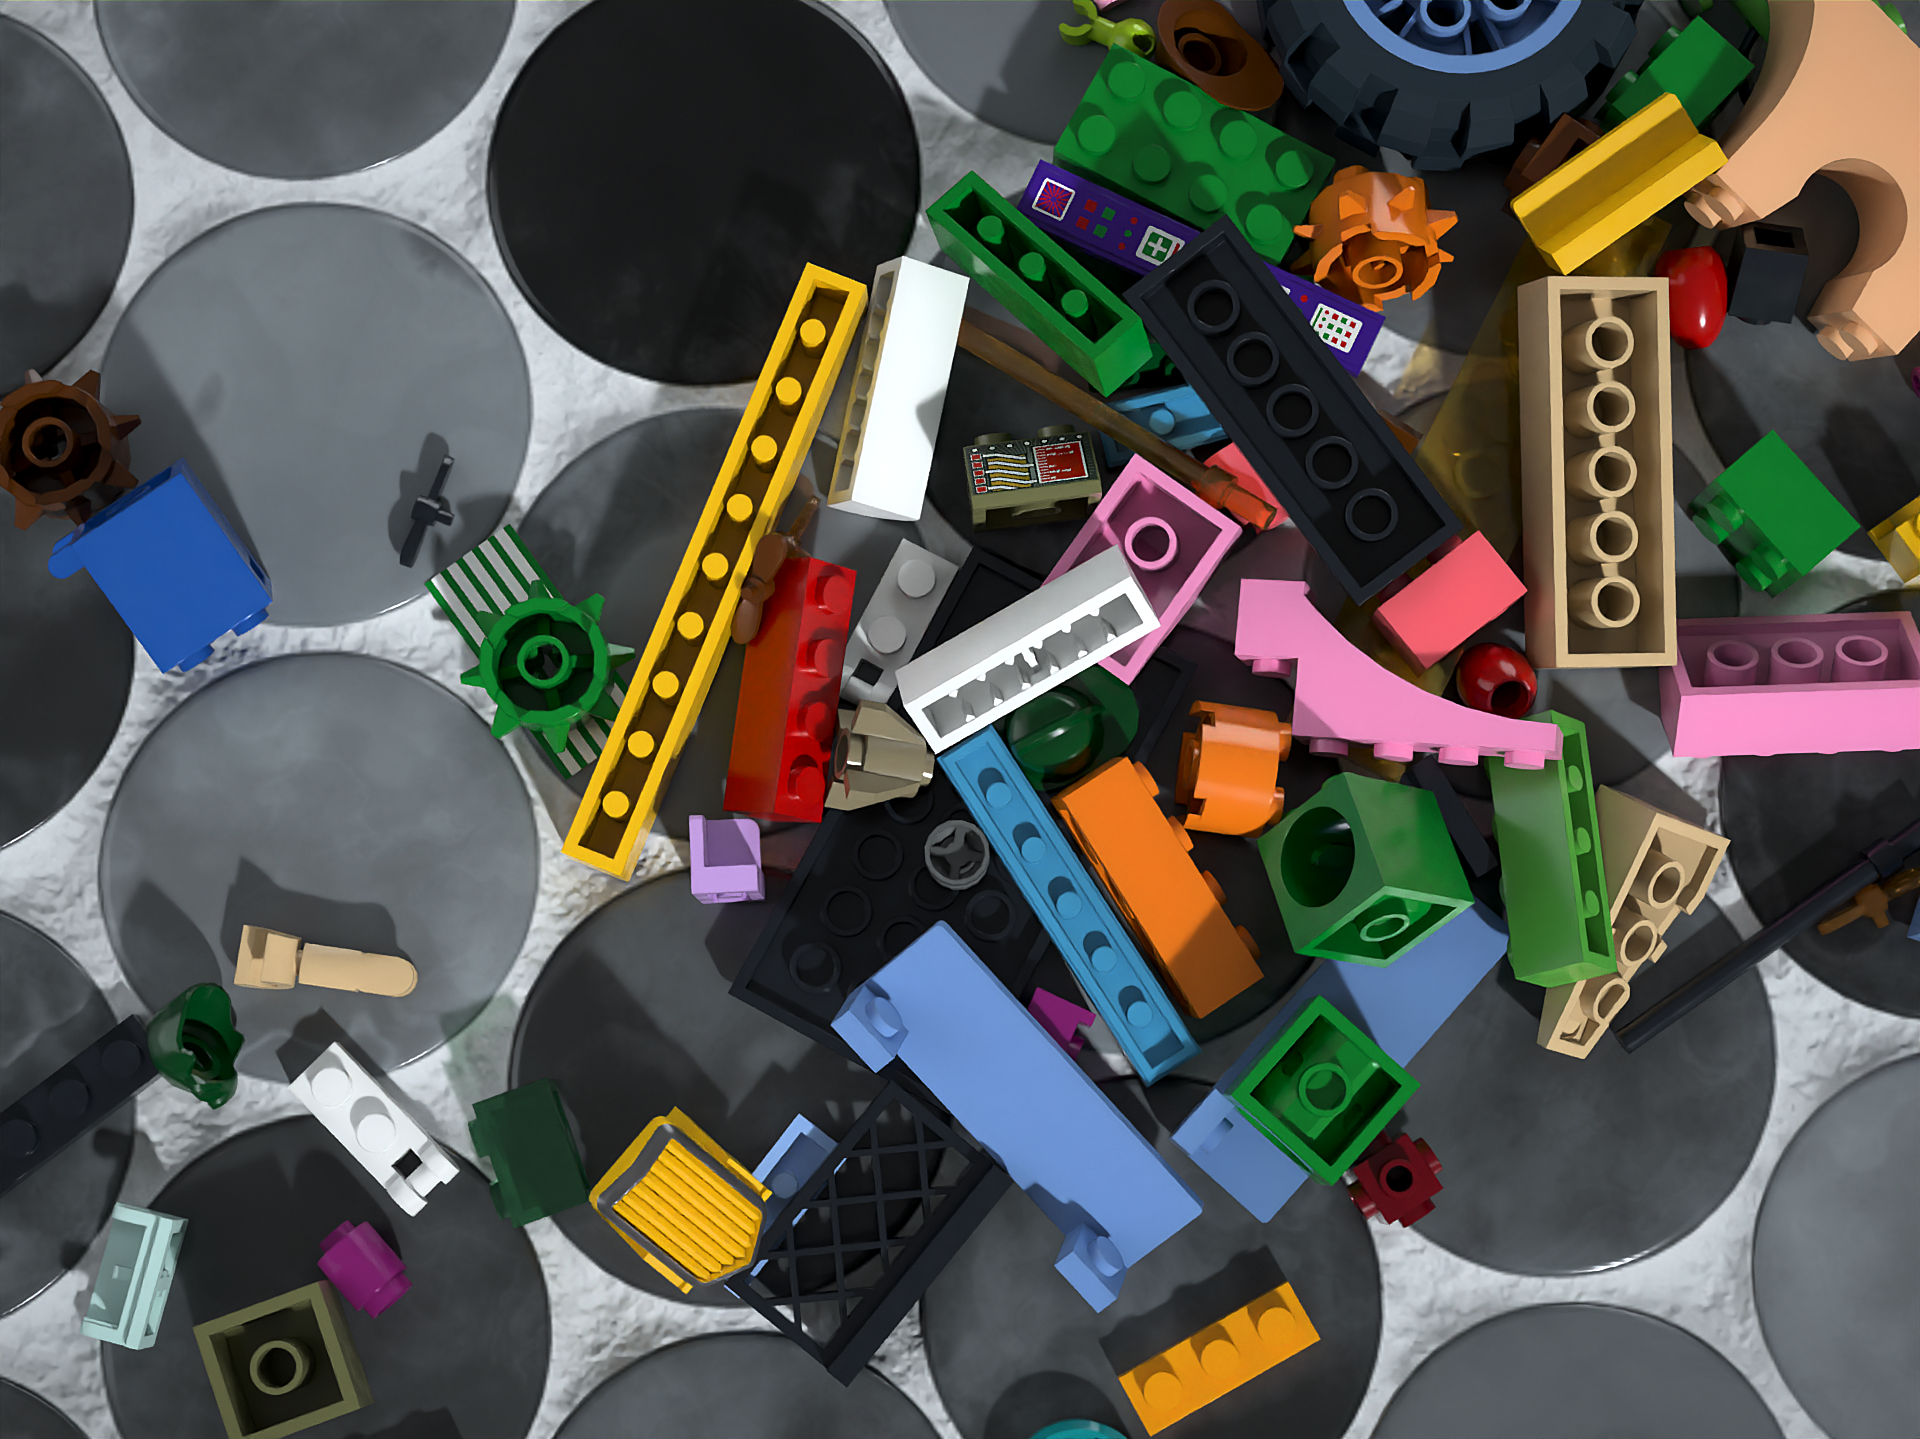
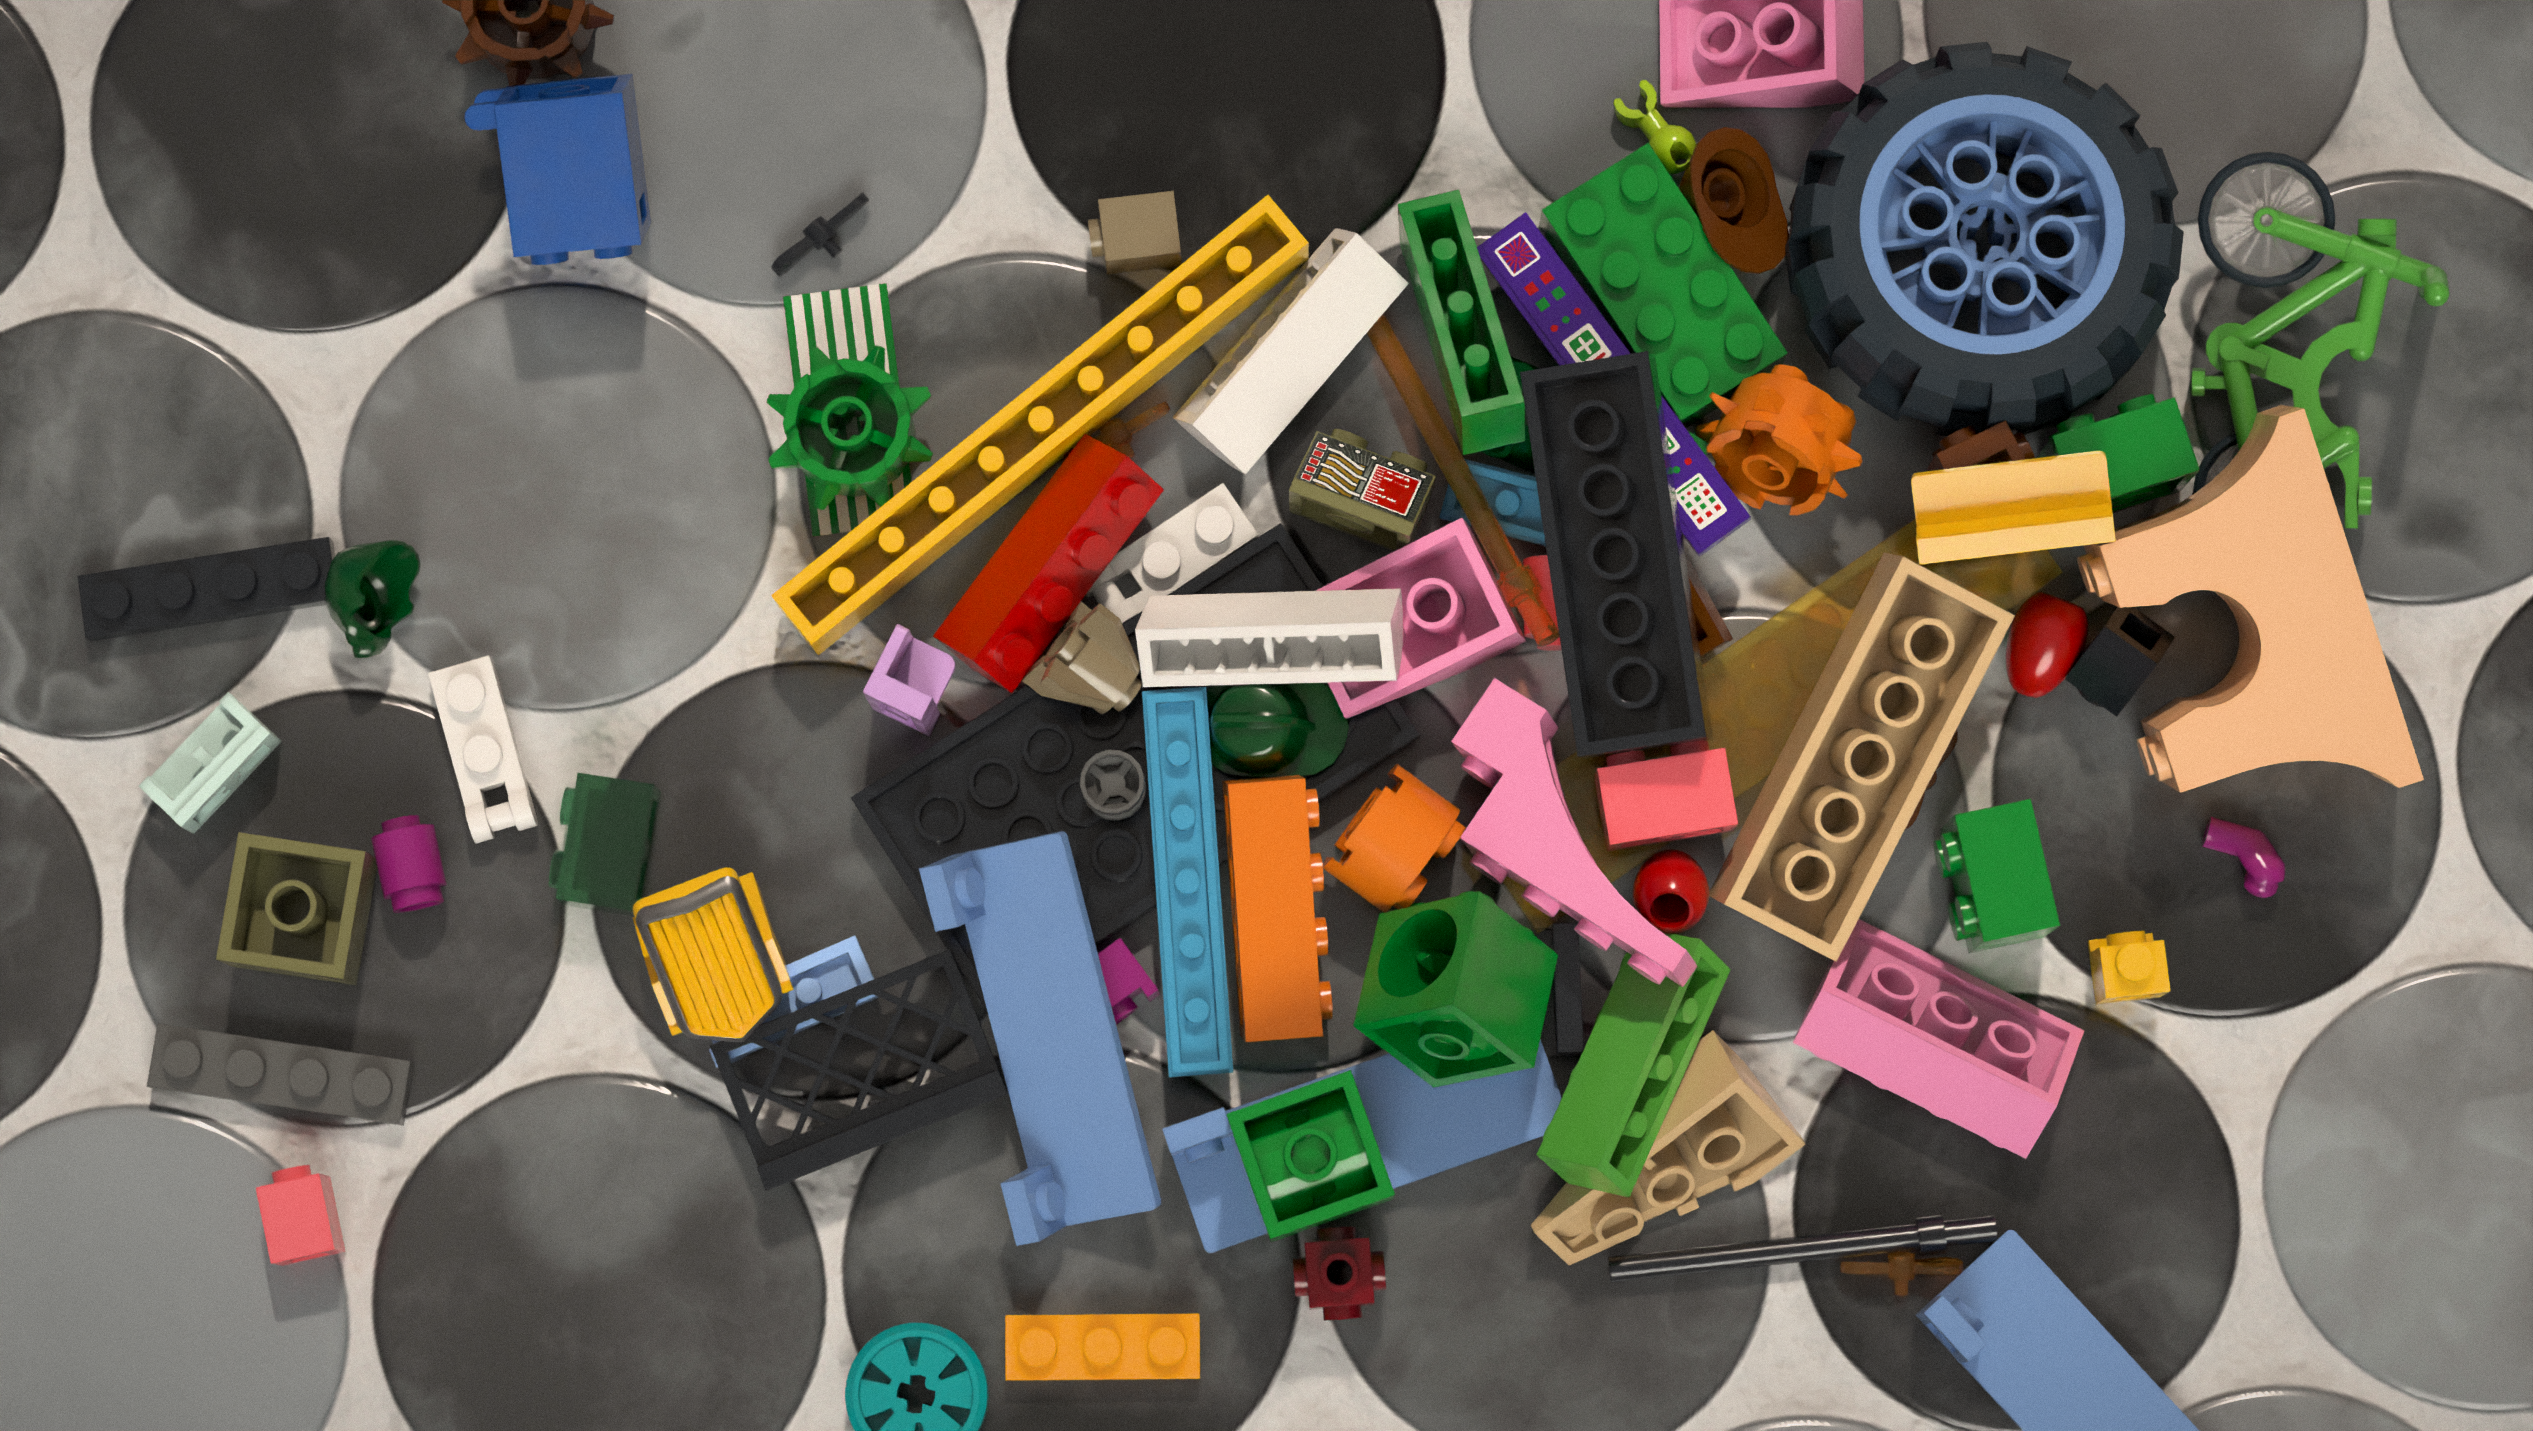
camera: 30 degrees right, 0 degrees up
(274, 960) = (477, 555): tan piece -> none
(707, 360) = (1136, 232): none -> dark tan brick
(759, 587) = (1069, 458): reddish brown piece -> none

